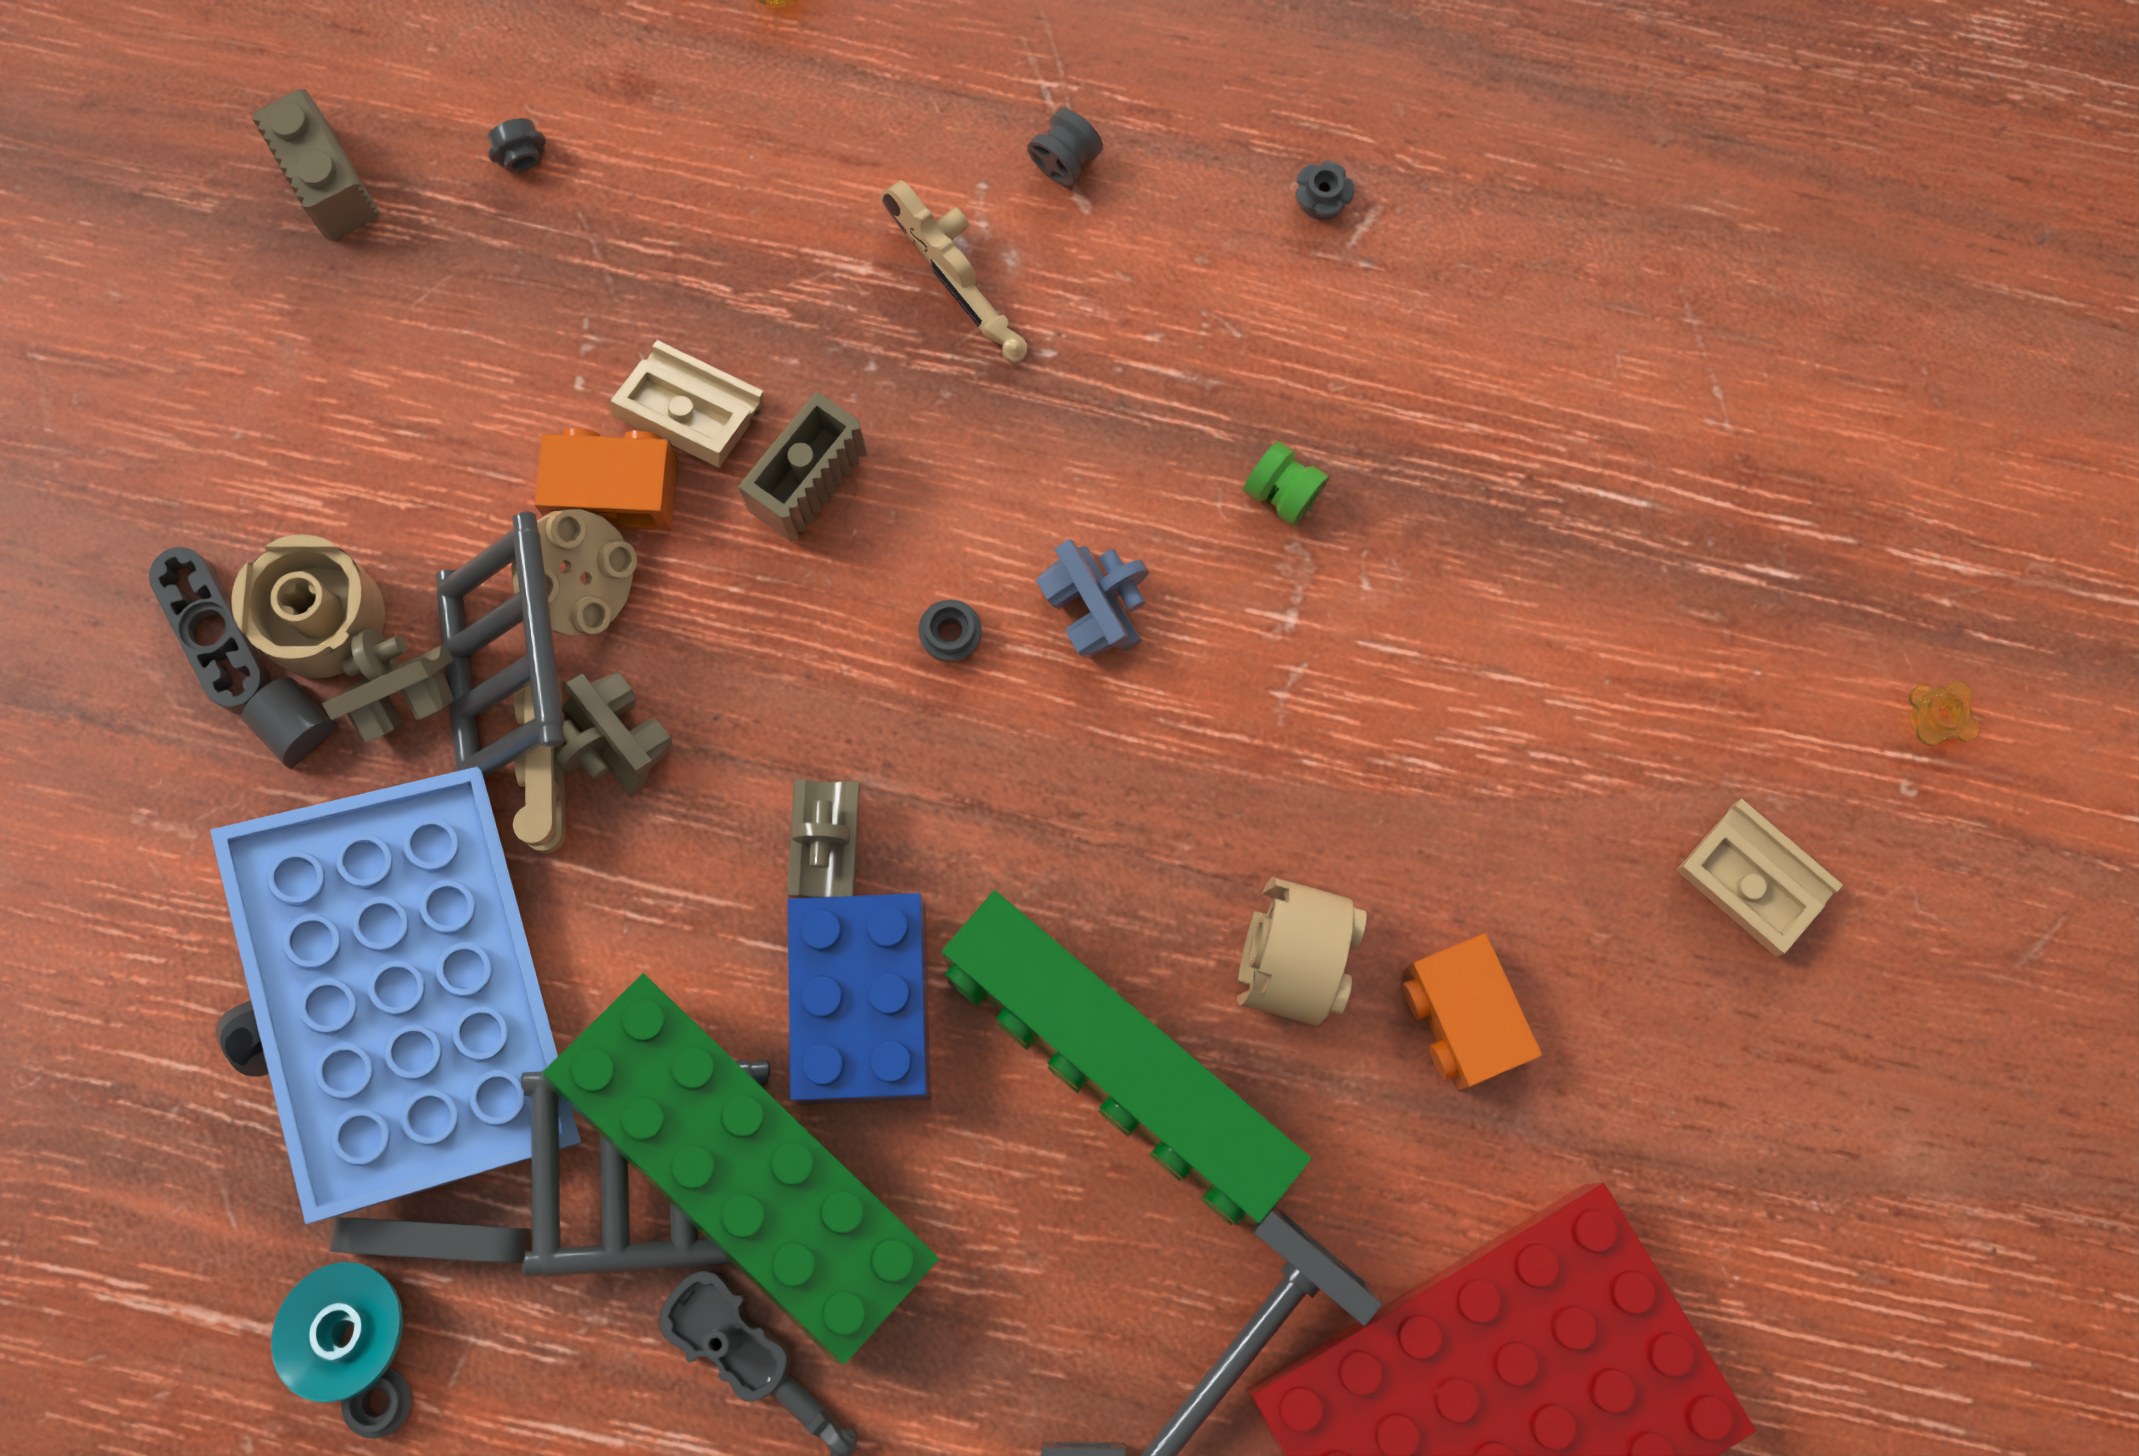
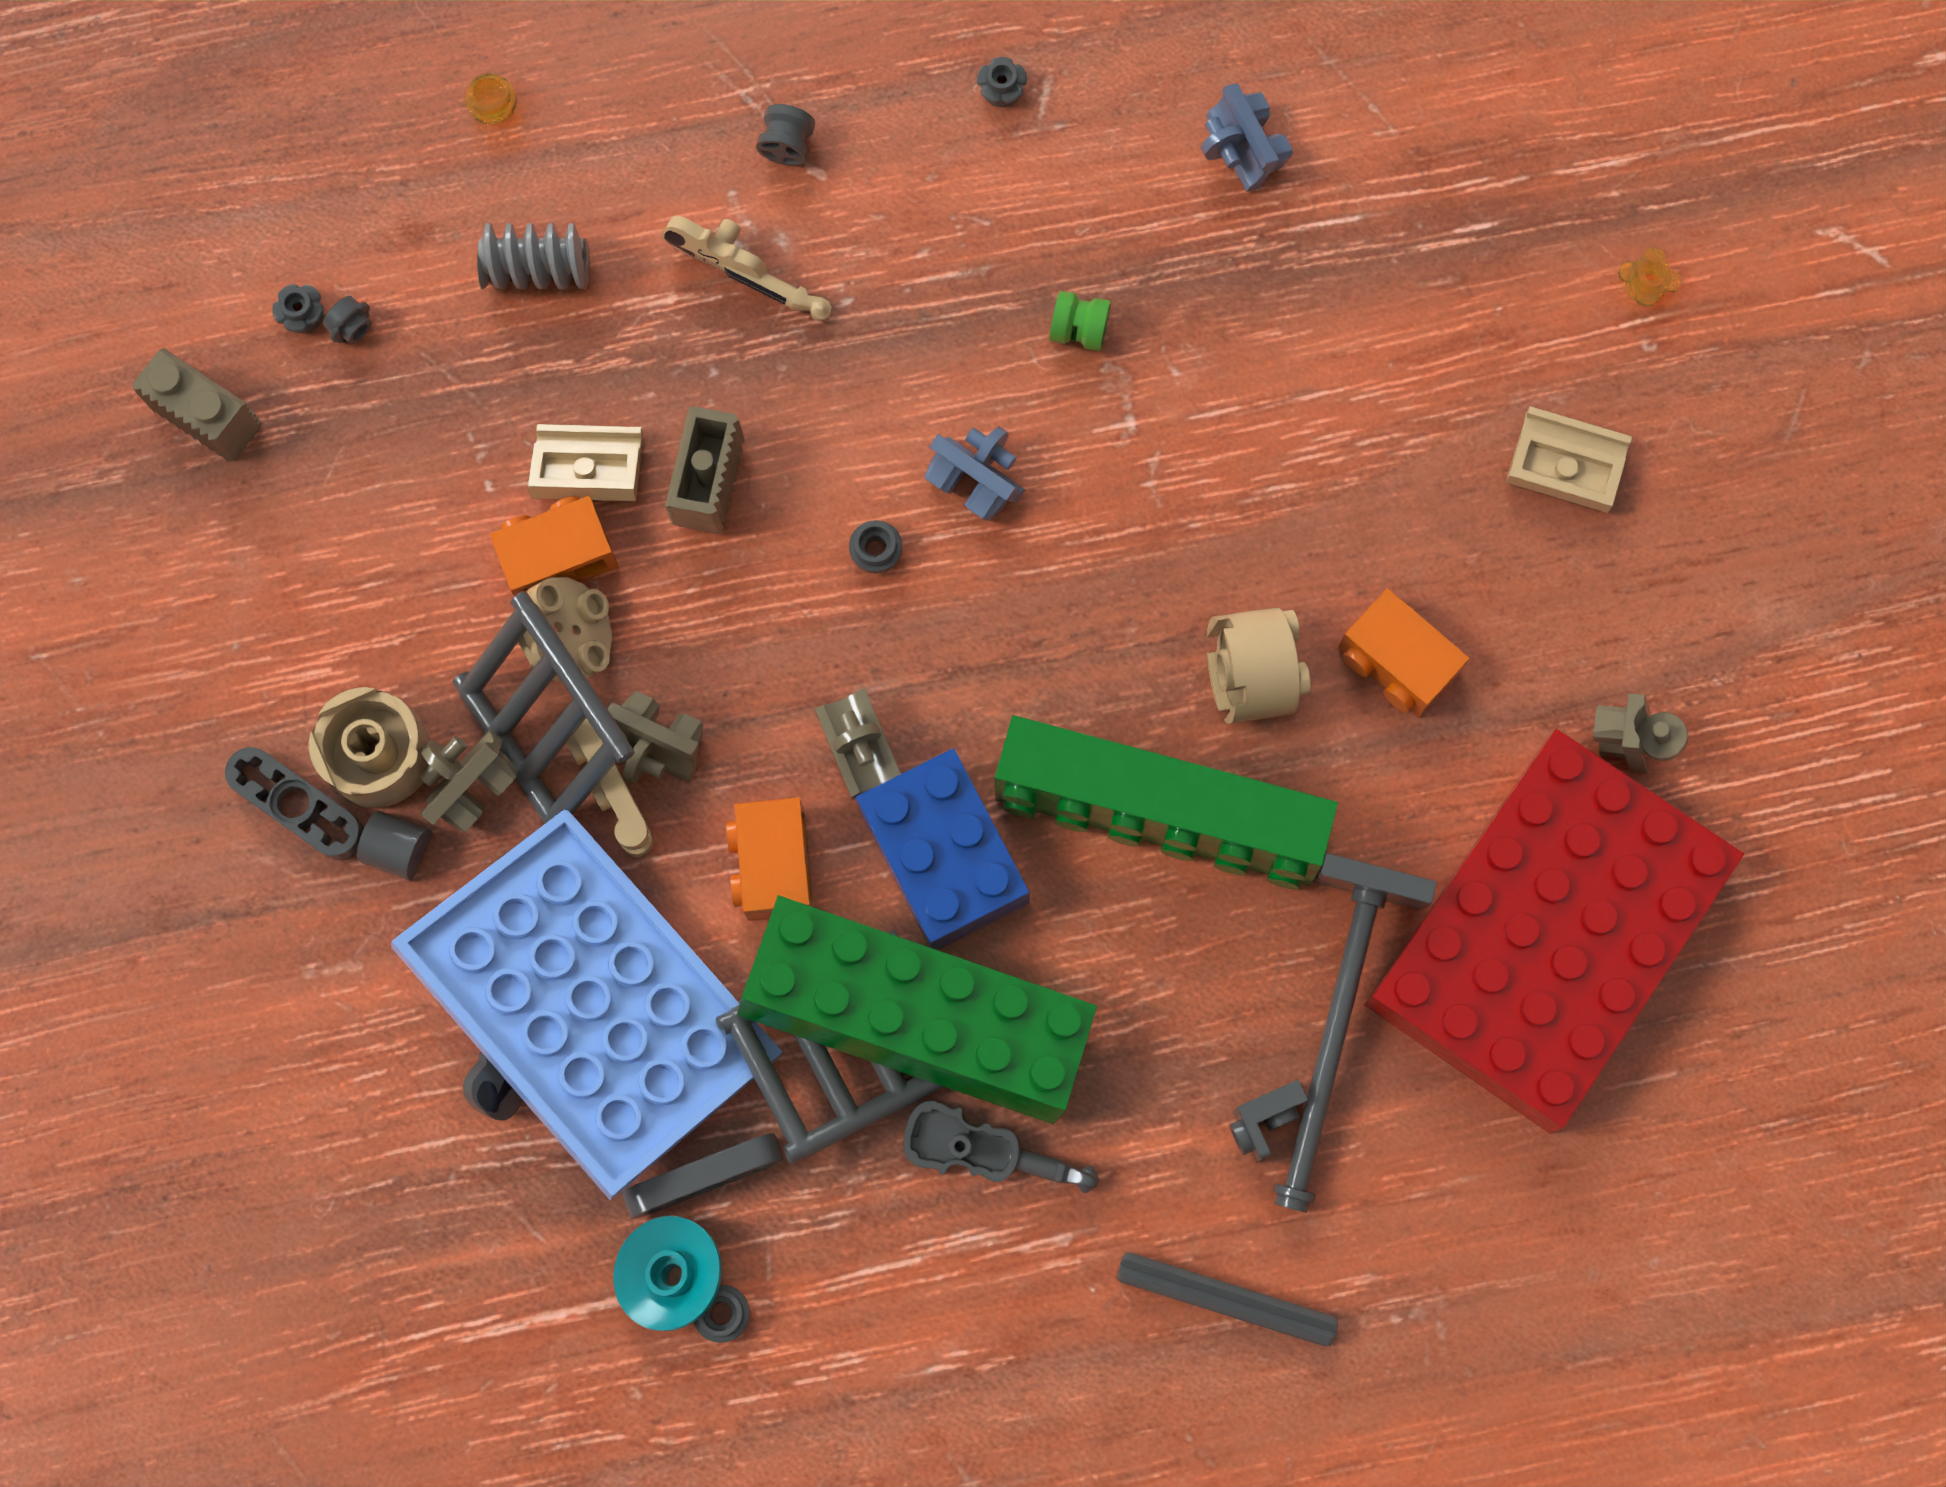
camera: 20 degrees left, 0 degrees up
(480, 122) = (305, 319): none -> dark grey plate
(672, 921) = (770, 854): none -> orange brick
(735, 163) = (533, 258): none -> light grey piece
(1554, 365) = (1239, 137): none -> sand blue hips
(1698, 1231) = (1635, 732): none -> dark tan hips

